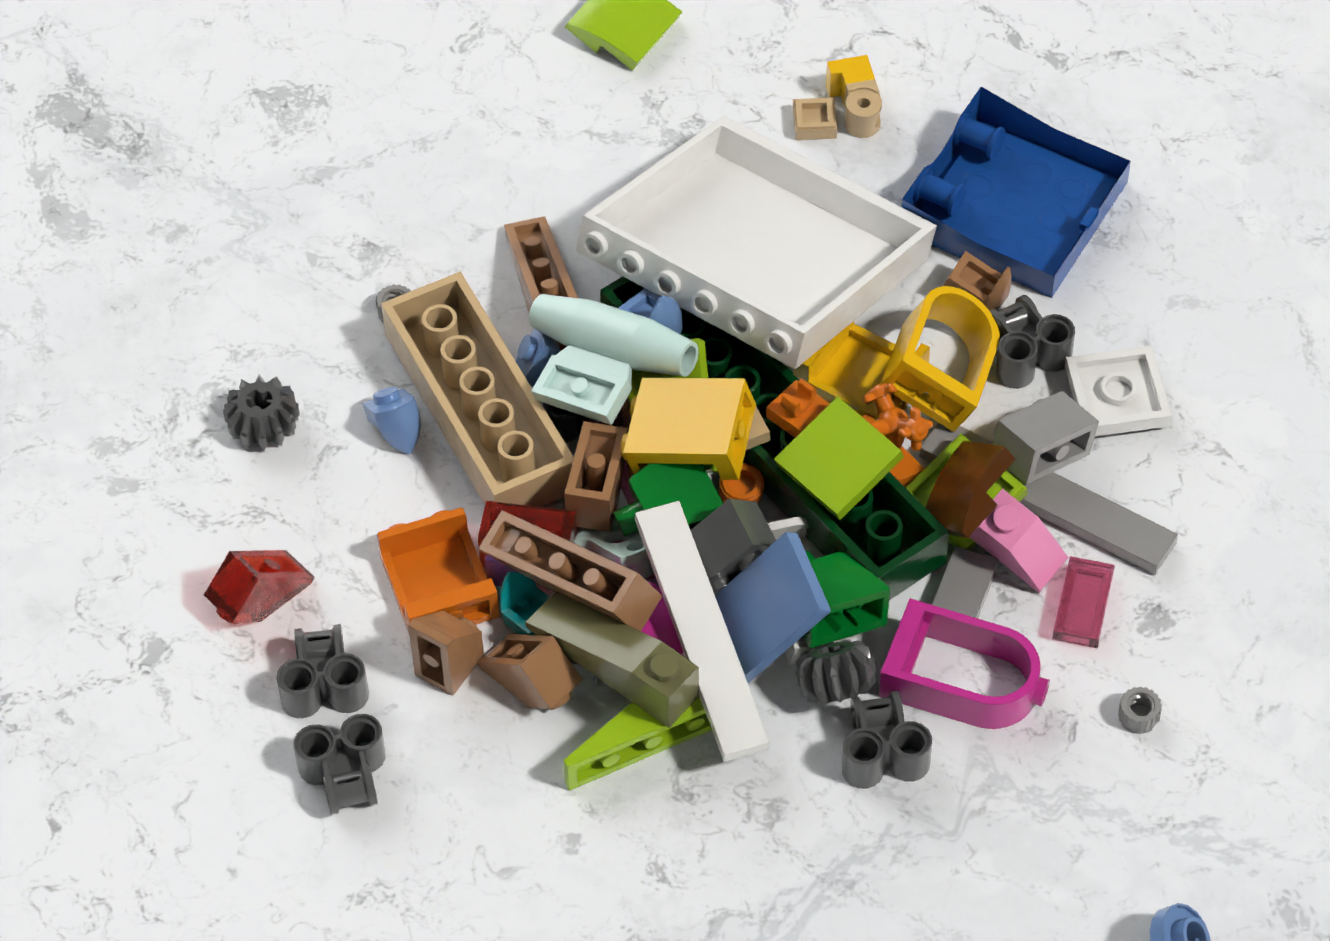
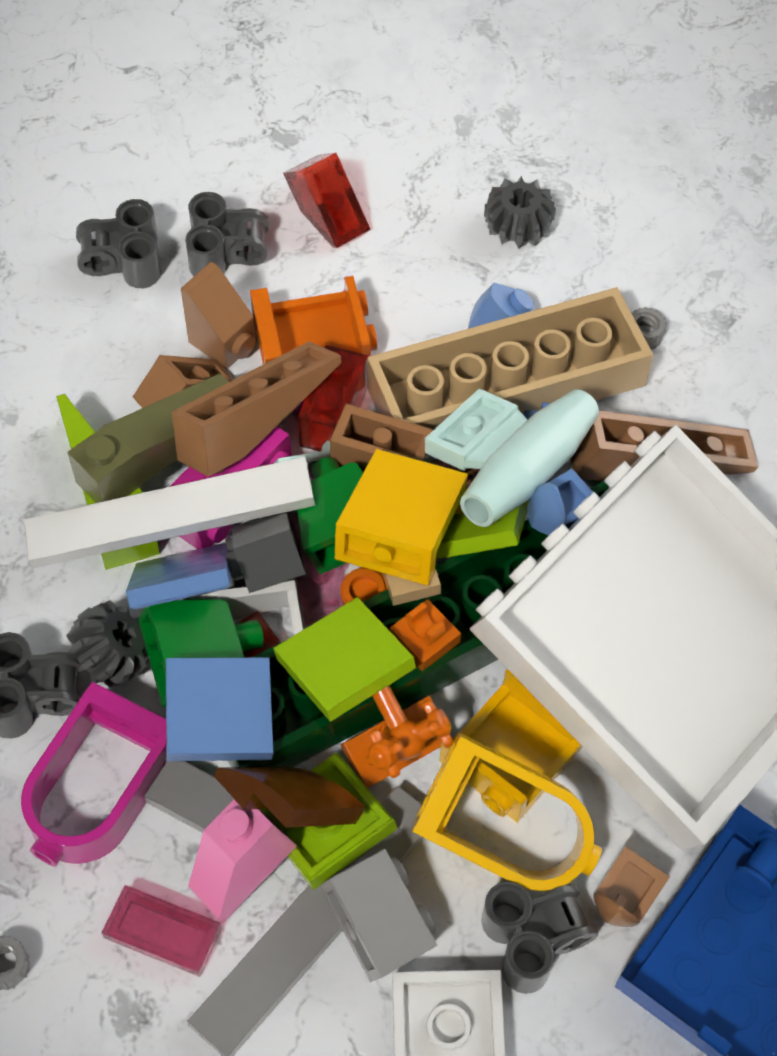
camera: 95 degrees right, 5 degrees up
(903, 546) = (218, 709): none -> medium blue tile

